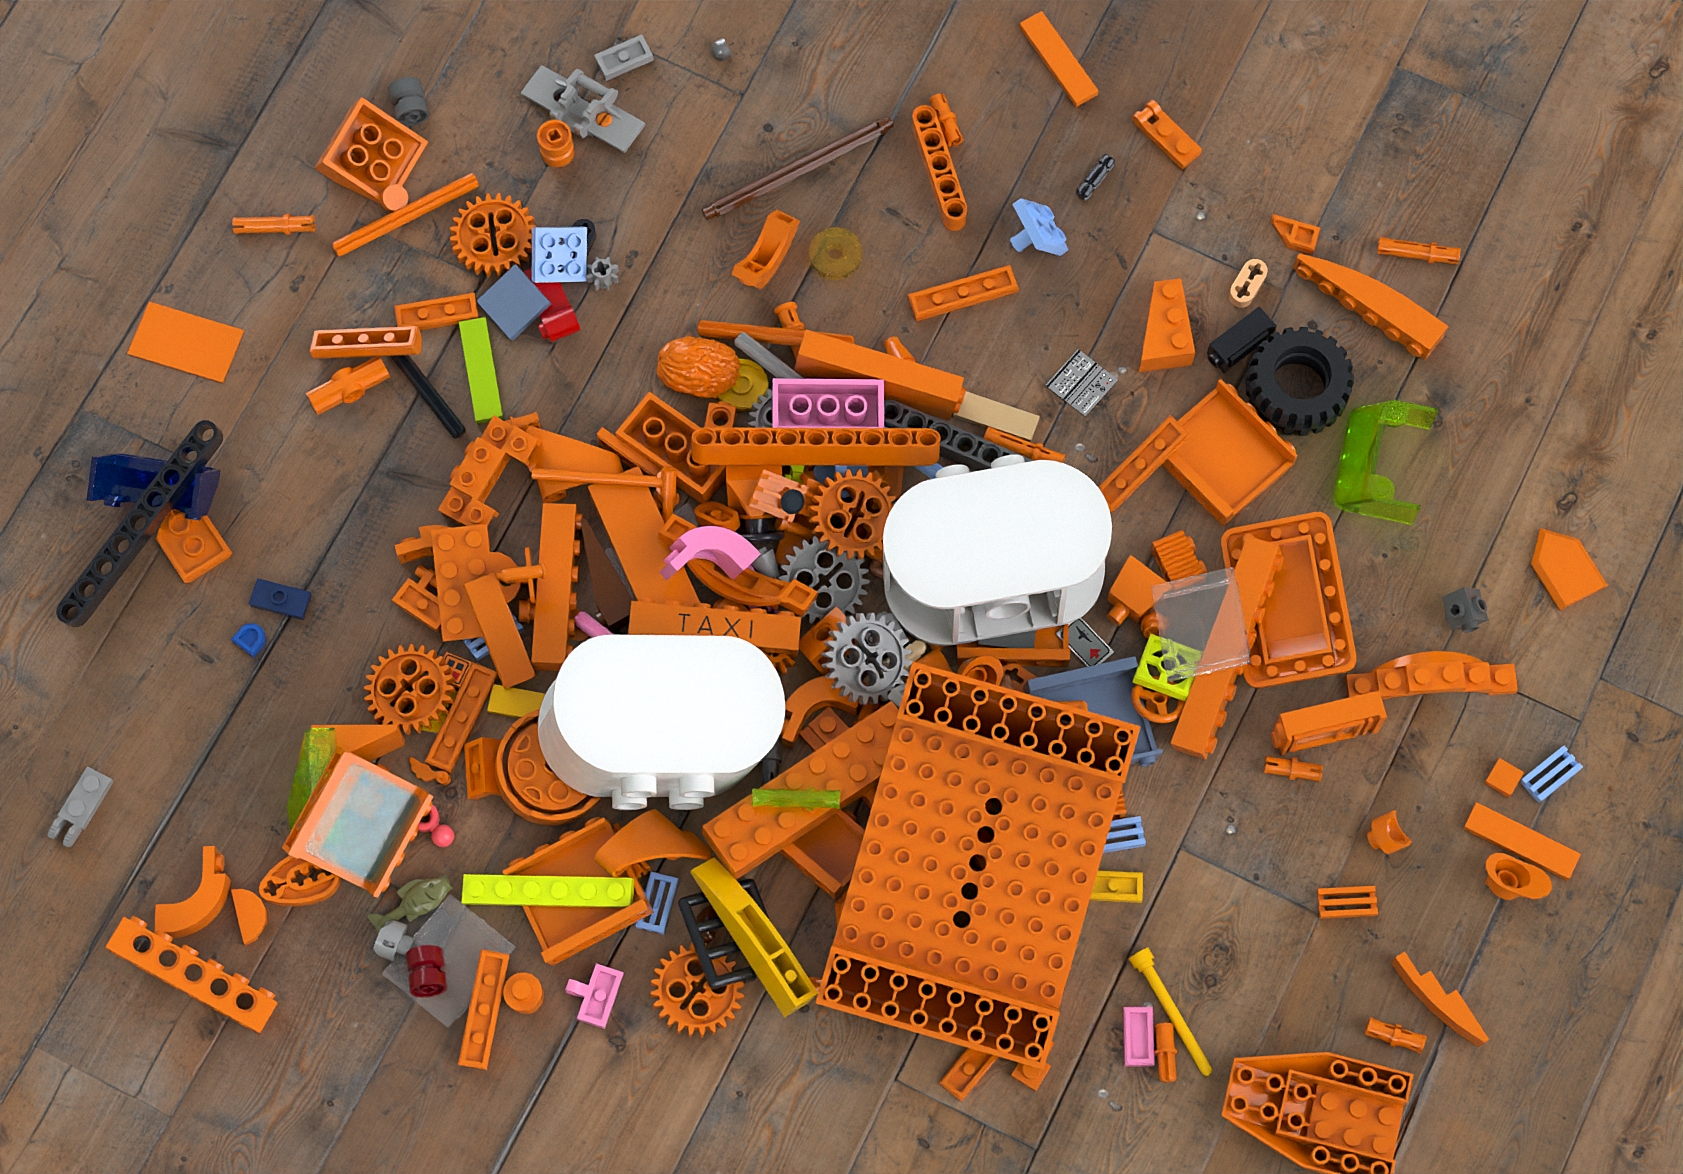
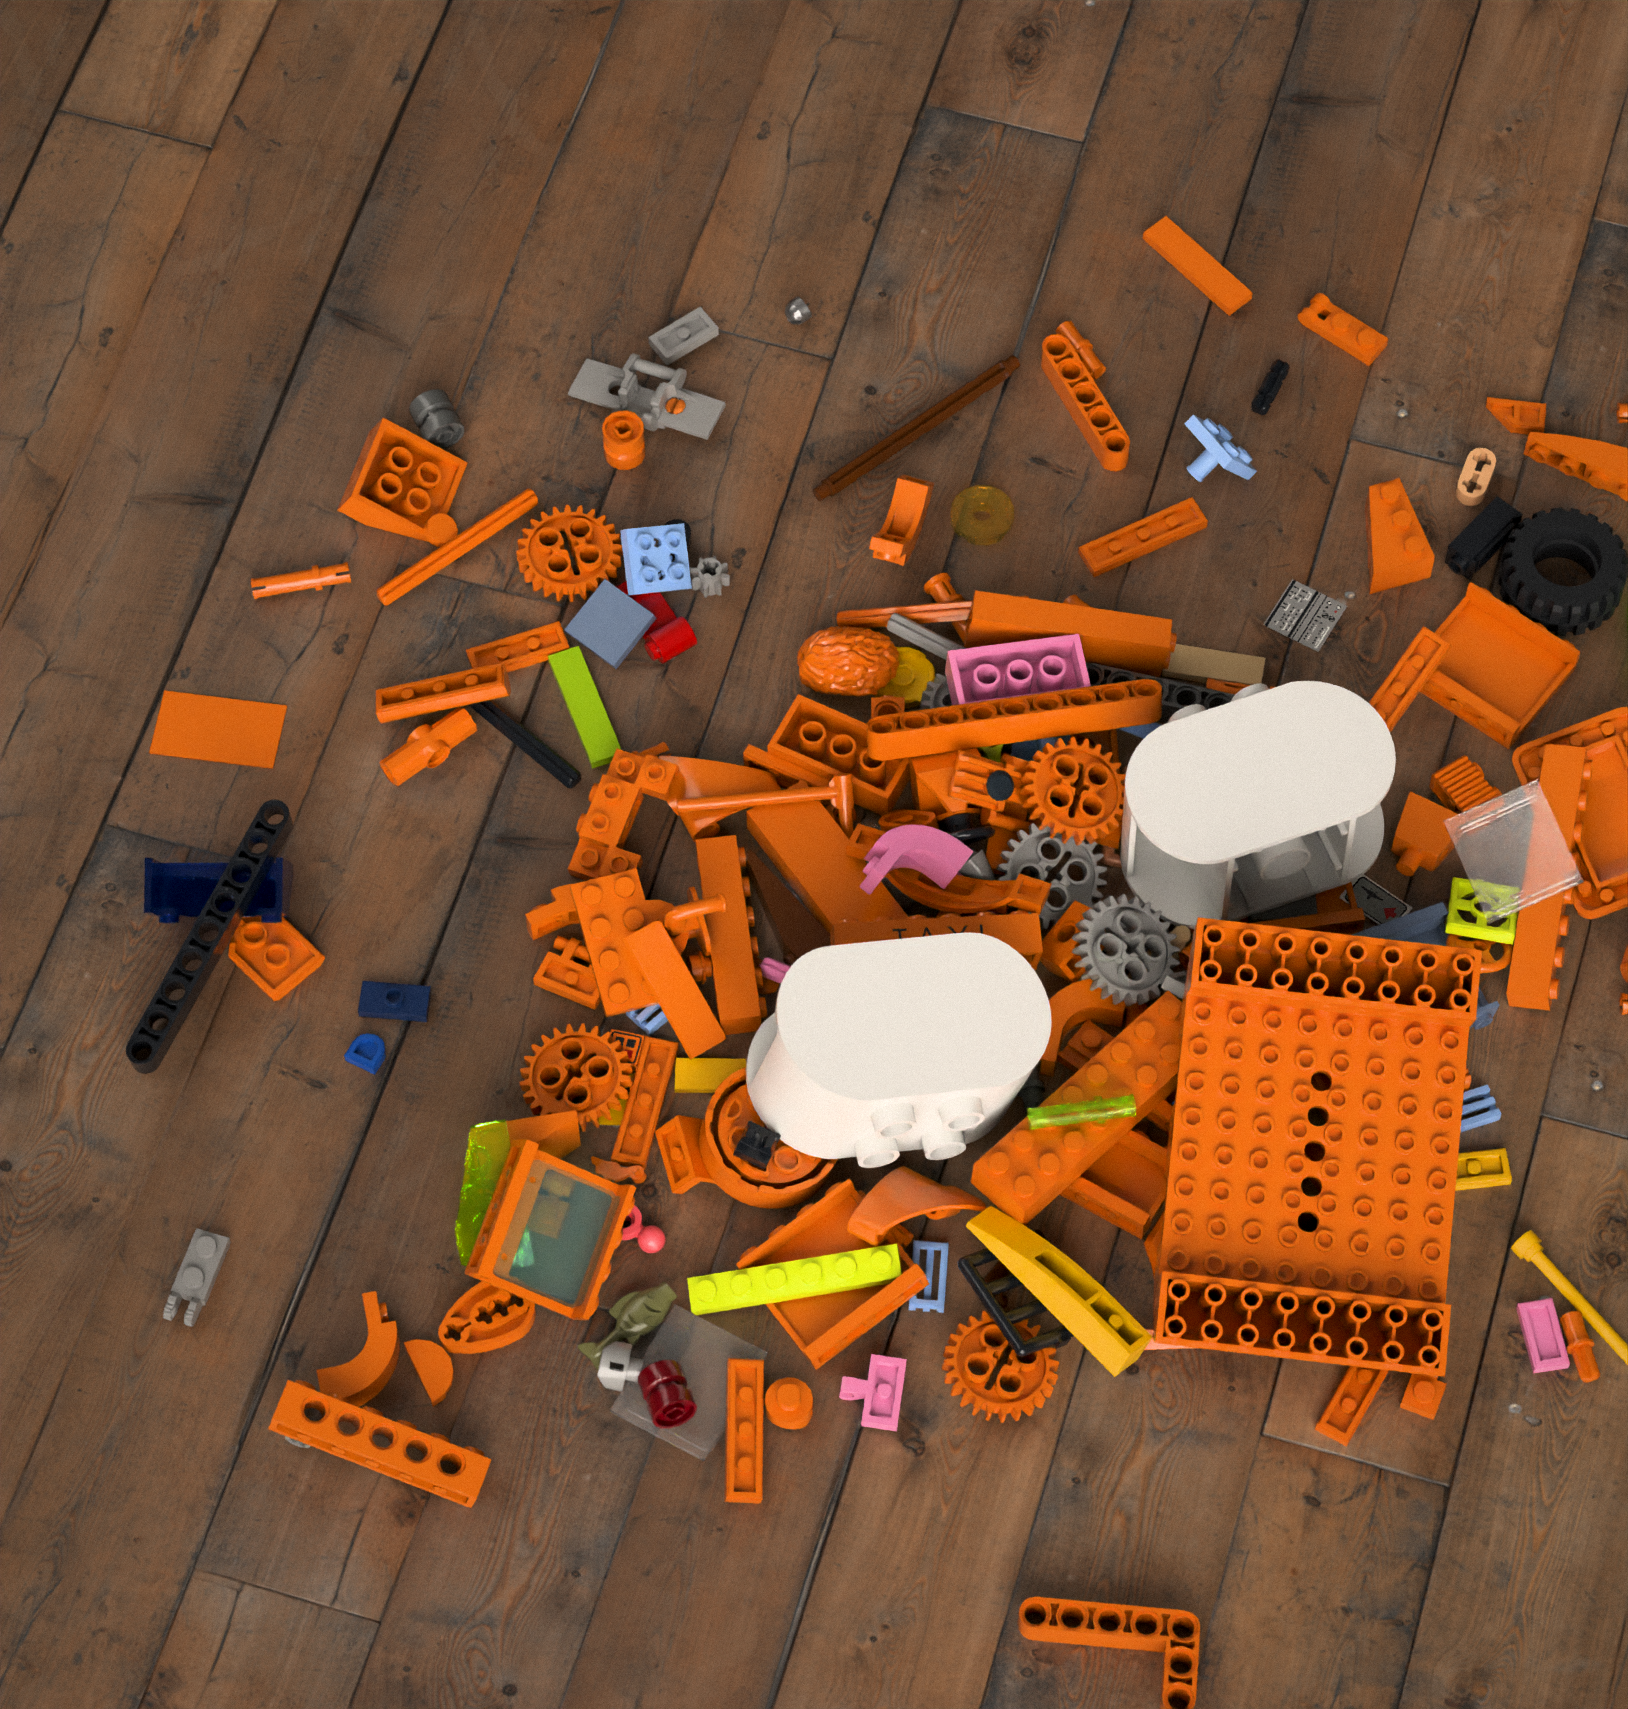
camera: 10 degrees left, 10 degrees down
(535, 777) = (756, 1145): none -> black tile
(1149, 625) = (1450, 867): orange plate -> none

